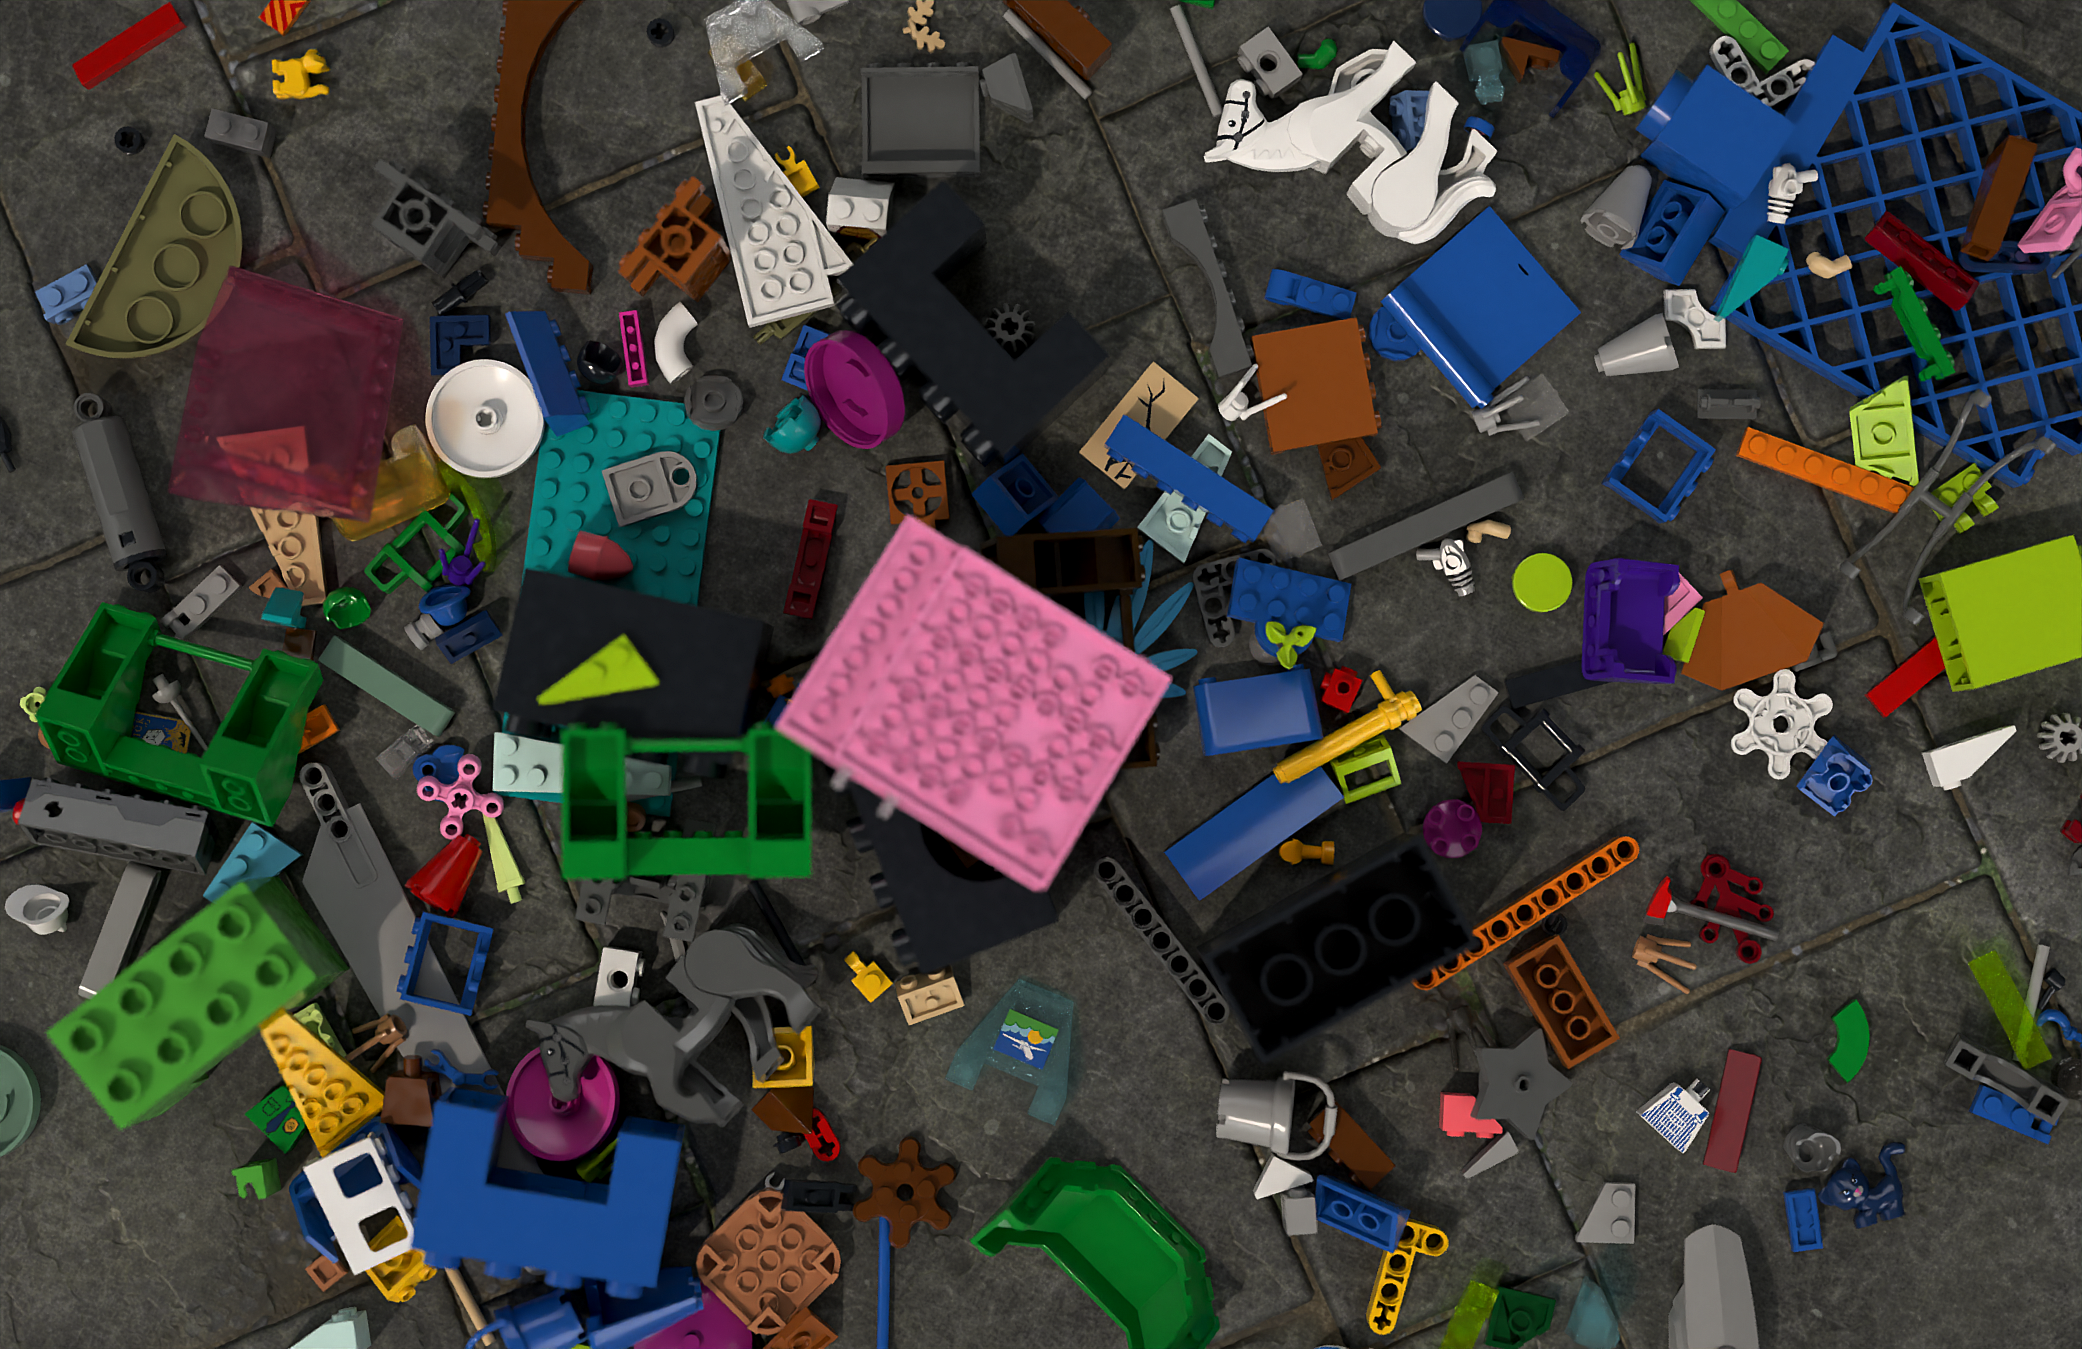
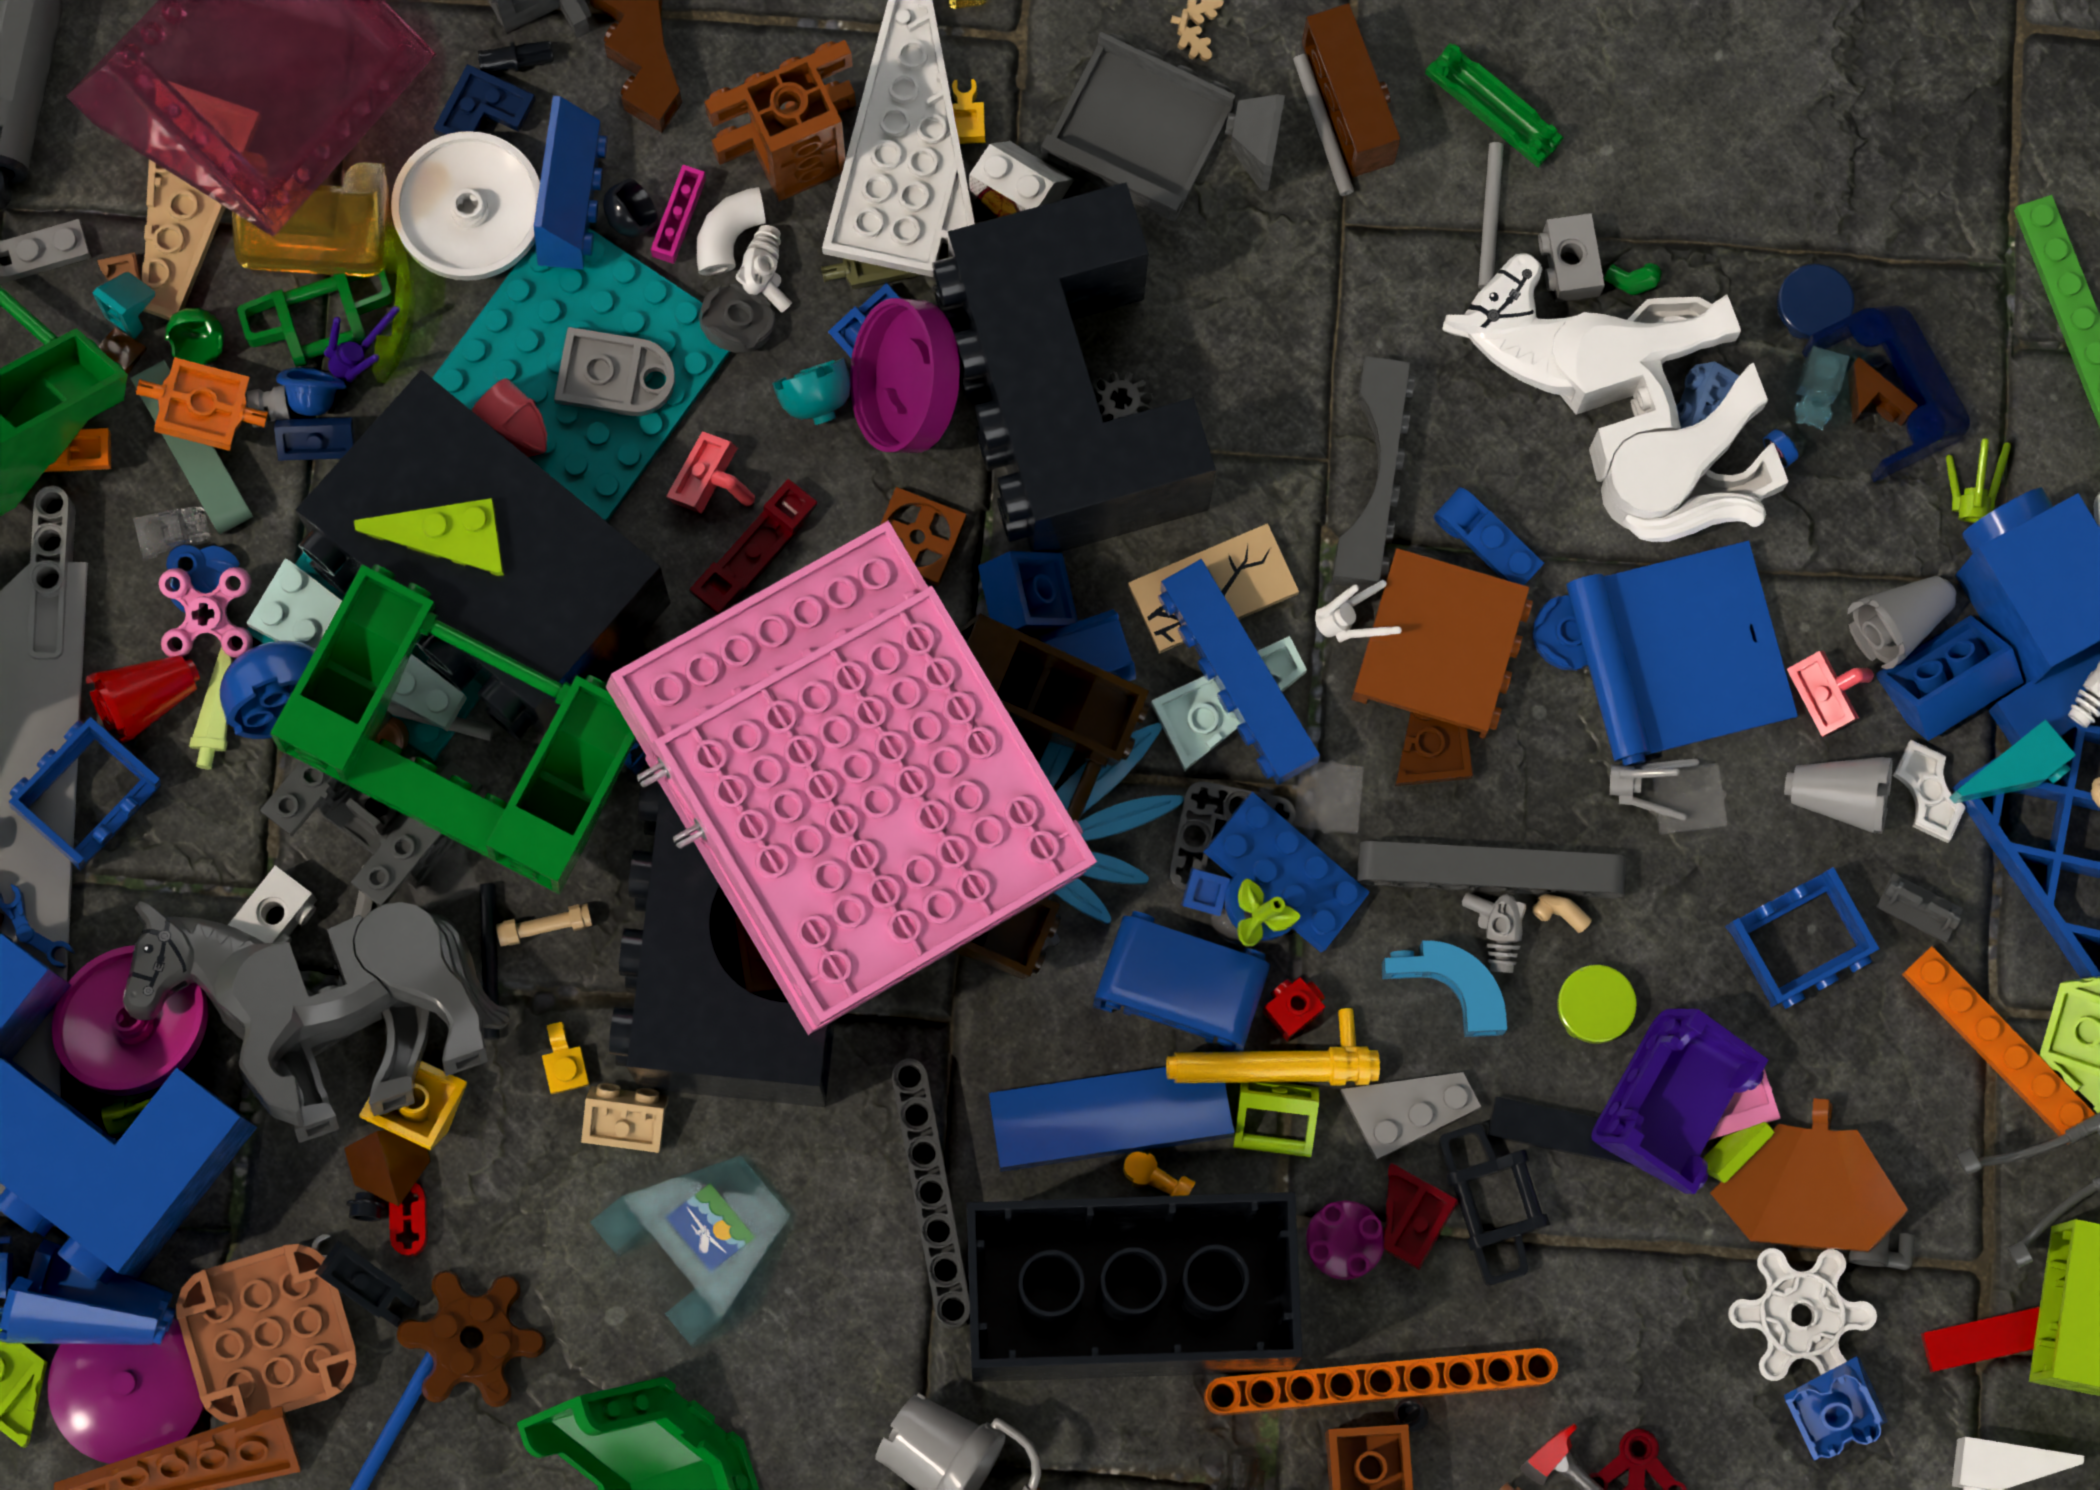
camera: 20 degrees right, 10 degrees down
(378, 655) = (201, 404): none -> orange plate
(533, 828) = (261, 684): none -> blue cylinder
(710, 358) = (759, 267): none -> white piece
(749, 524) = (706, 471): none -> coral plate
(825, 874) = (510, 932): none -> tan bar
(1241, 642) = (1205, 891): none -> blue plate
(1455, 613) = (1464, 974): none -> dark azure arch
(1592, 286) = (1825, 692): none -> coral plate

